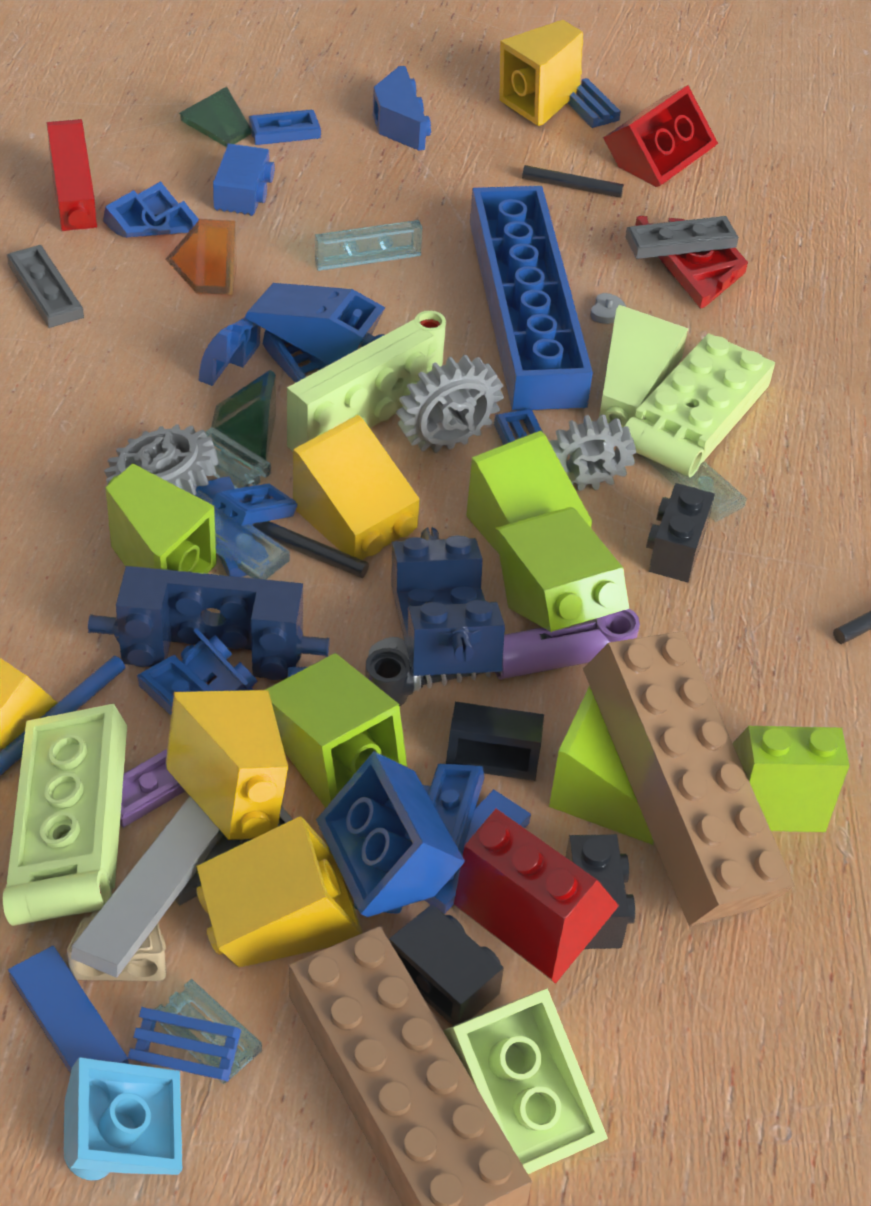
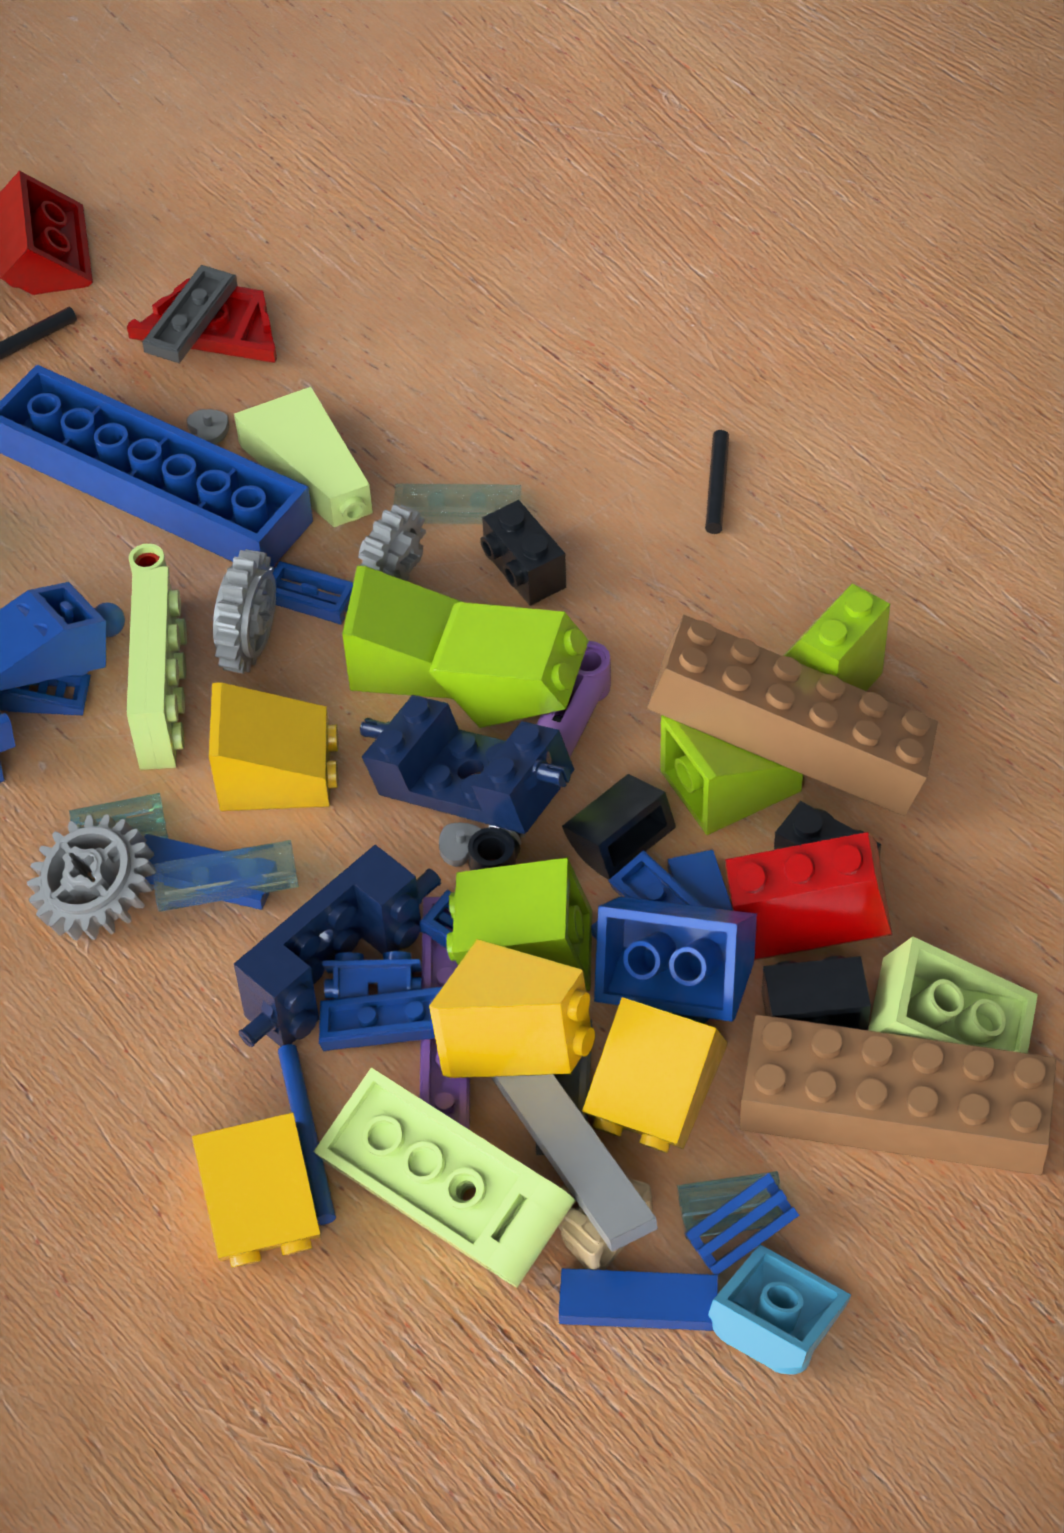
camera: 45 degrees left, 5 degrees up
(159, 524) = (180, 925): lime slope -> none
(250, 415) = (88, 771): clear green slope -> none
(254, 504) = (208, 844): blue tile -> none
(314, 548) = (287, 824): black bar -> none
(699, 404) = (394, 439): yellowish green hinge -> none

